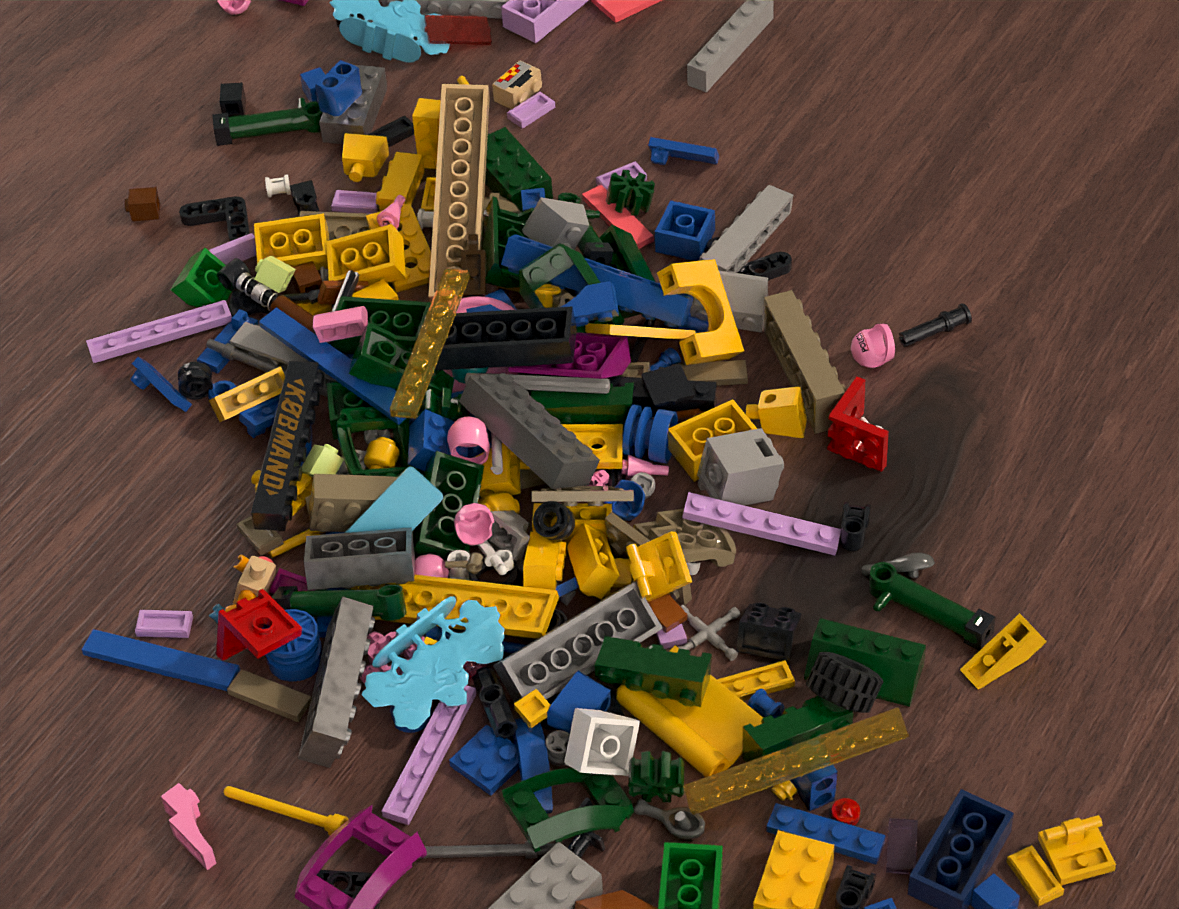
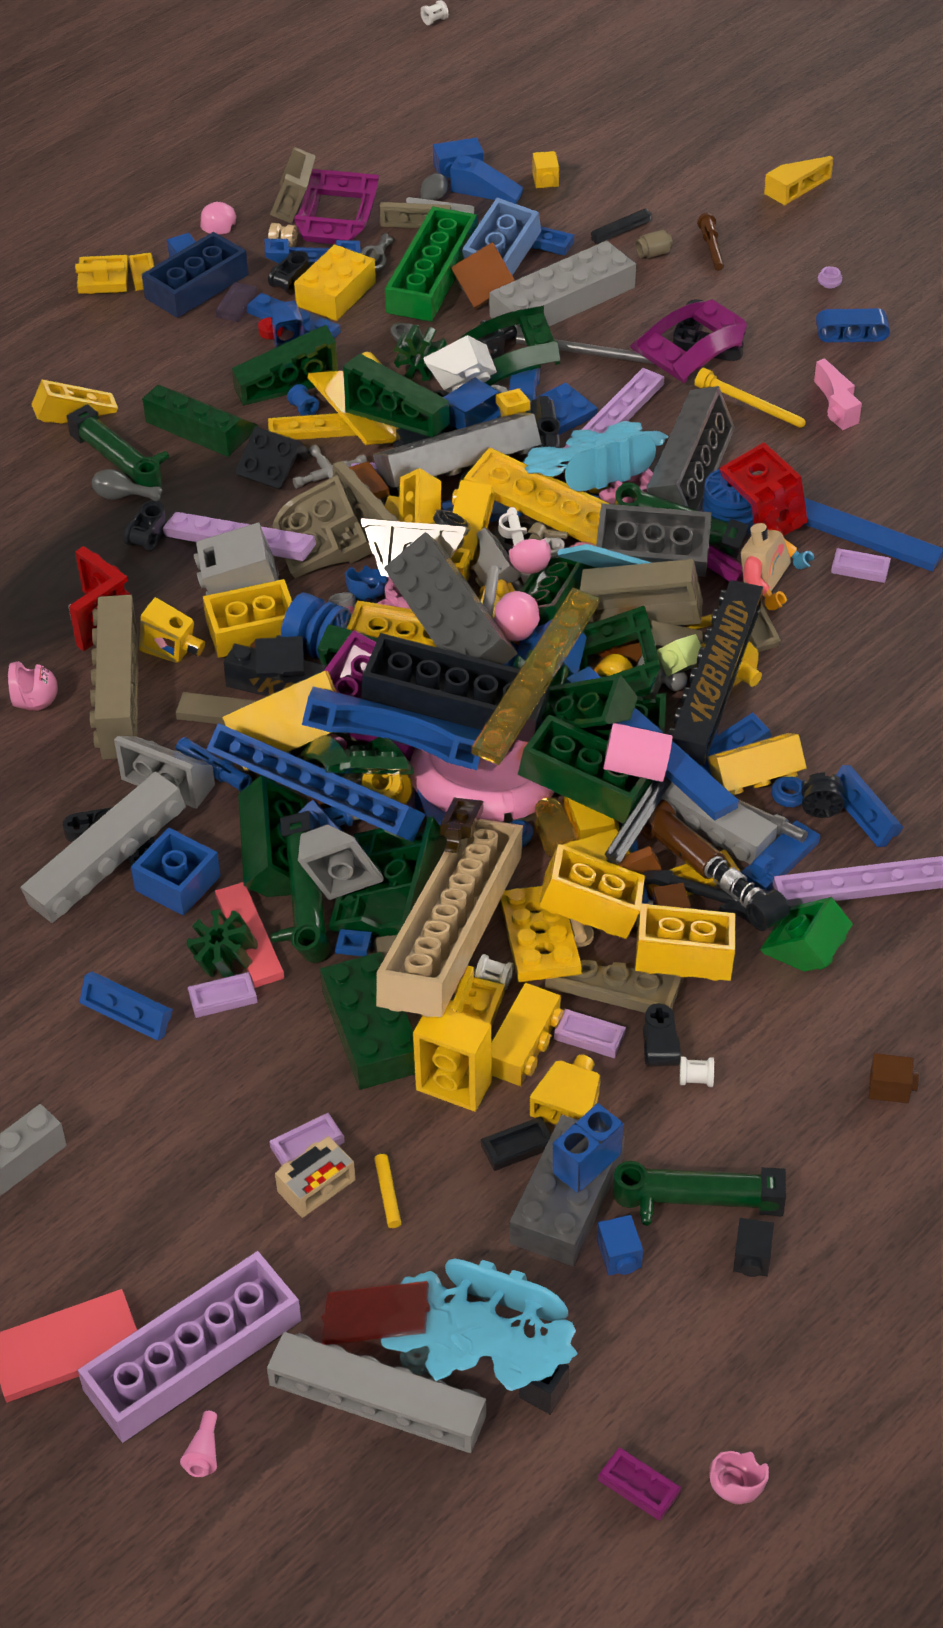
camera: 170 degrees left, 0 degrees up
(225, 212) = (774, 1051): black beam -> none
(239, 248) = (765, 973): lavender tile -> none
(274, 273) = (713, 891): yellowish green brick -> none
(392, 213) = (549, 936): bright pink cone -> none
(658, 566) = (369, 468): yellow plate -> none
(704, 283) = (208, 717): yellow arch -> none
(796, 761) = (301, 308): clear yellow plate -> none
(844, 682) = (244, 380): black tyre -> none

